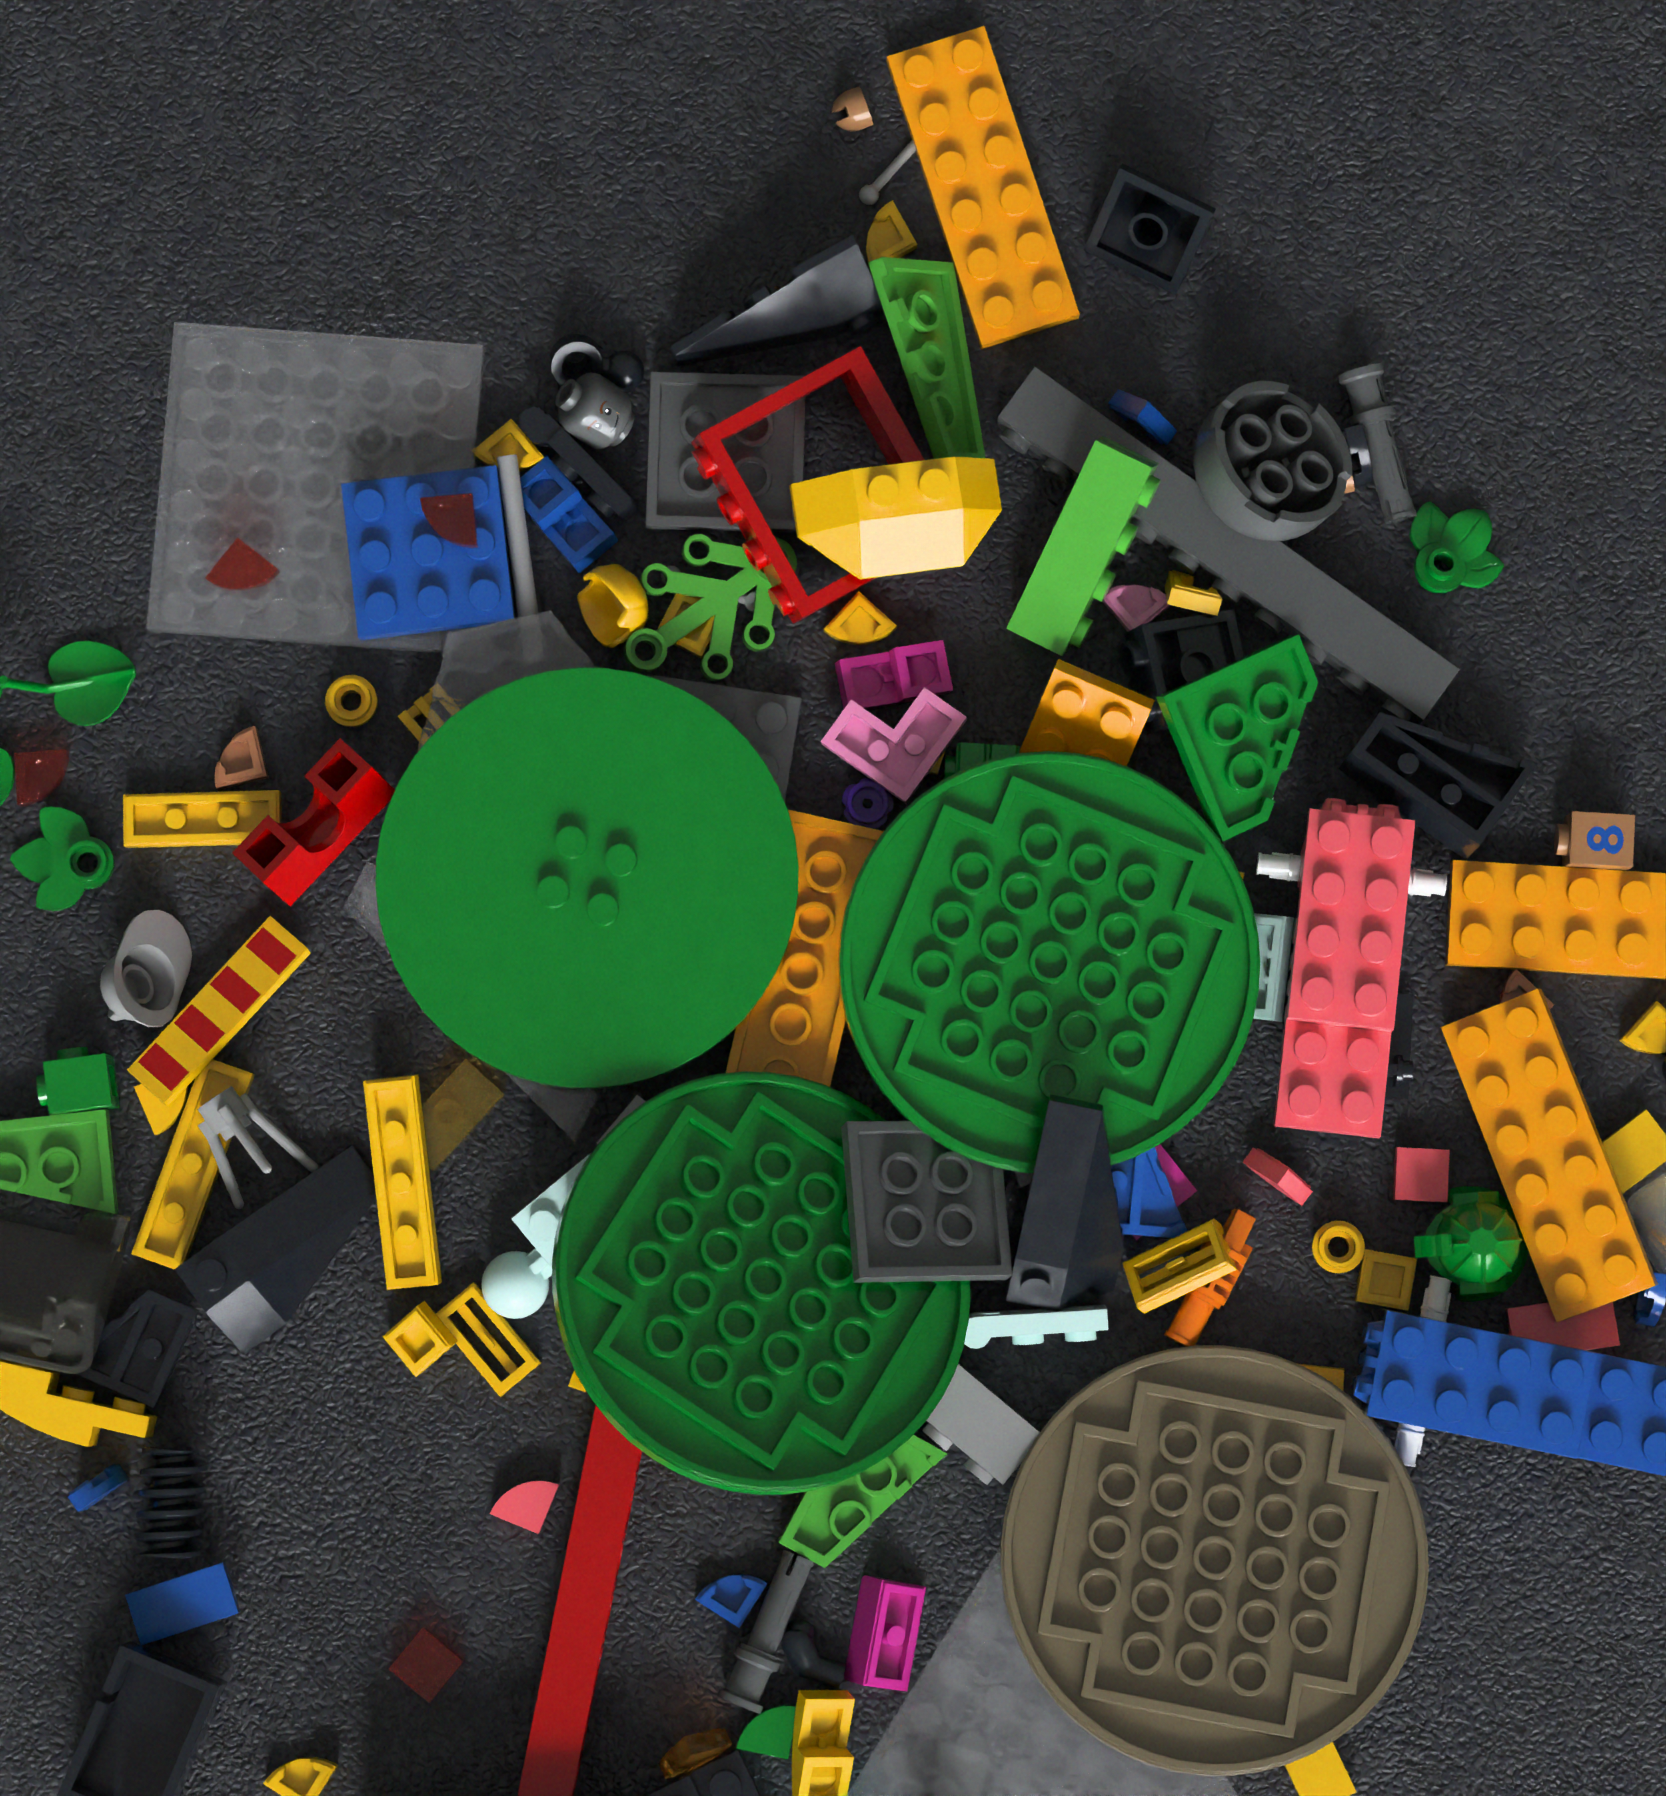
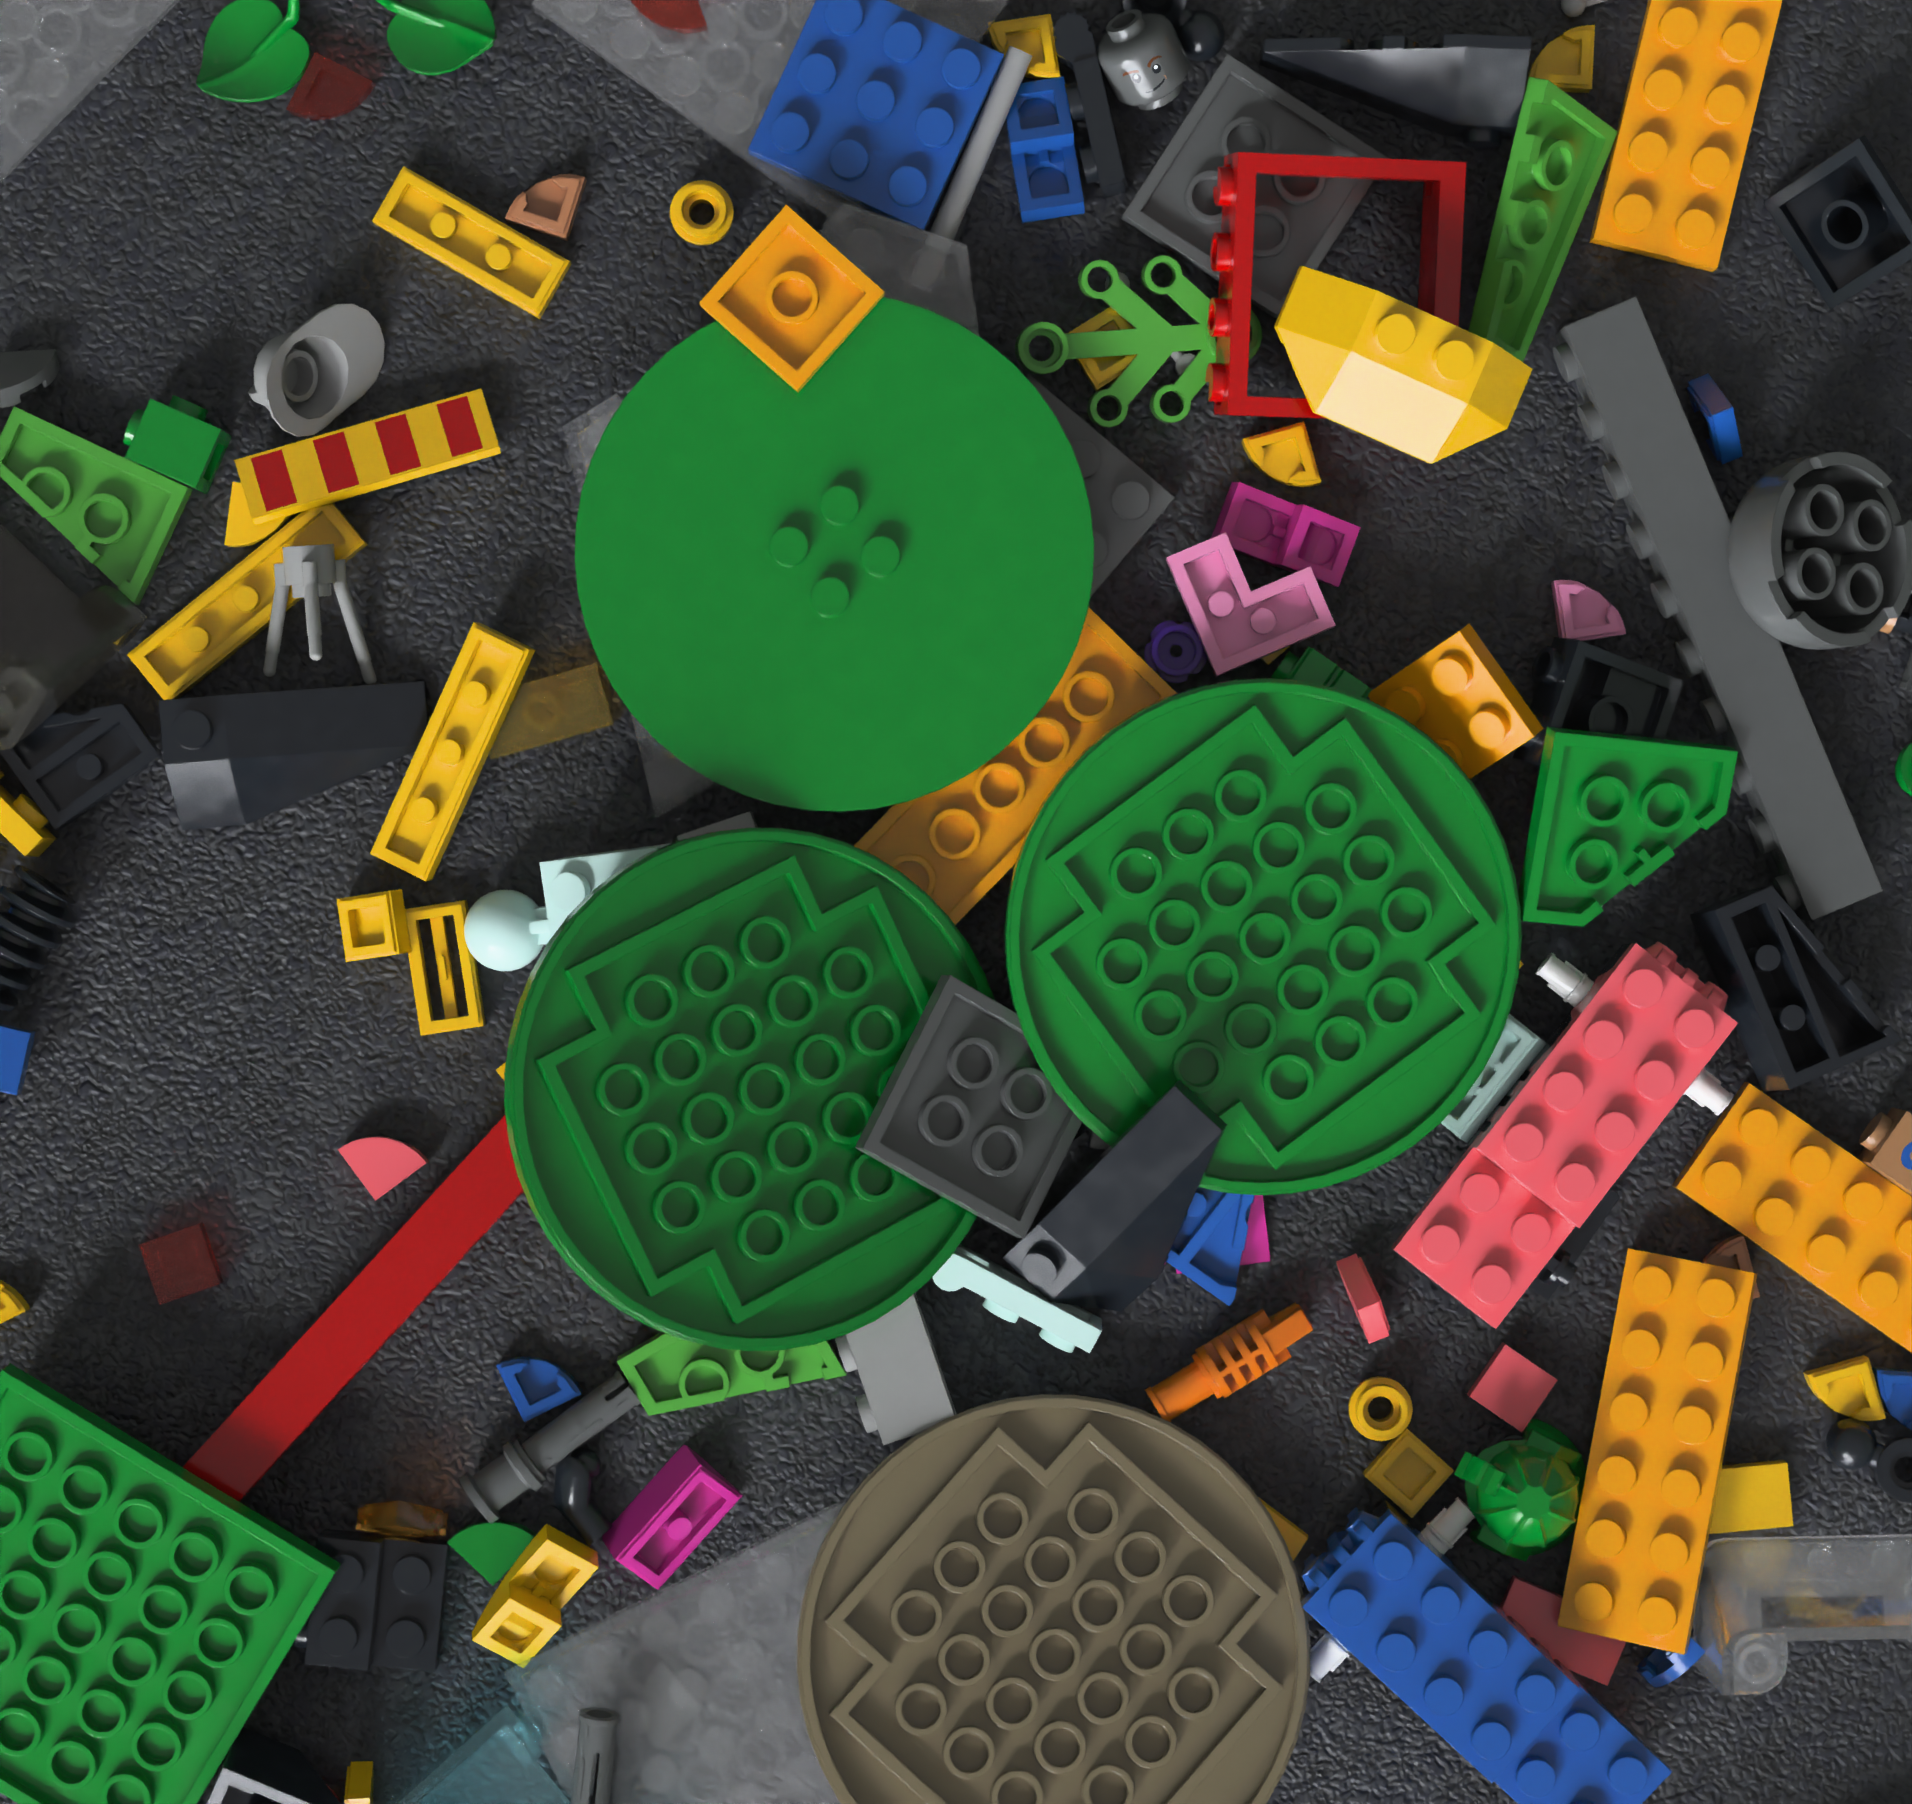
camera: 25 degrees right, 5 degrees up
(57, 859) = (295, 192): green plate -> none
(343, 804) = (548, 339): red arch -> none
(451, 719) = (792, 298): none -> light orange plate
(452, 518) = (923, 83): clear red tile -> none
(613, 604) = (1037, 278): yellow hair -> none
(1083, 545) = (1569, 519): bright green brick -> none
(1182, 1273) = (1201, 1353): yellow tile -> none
(1184, 595) = (1641, 633): yellow tile -> none

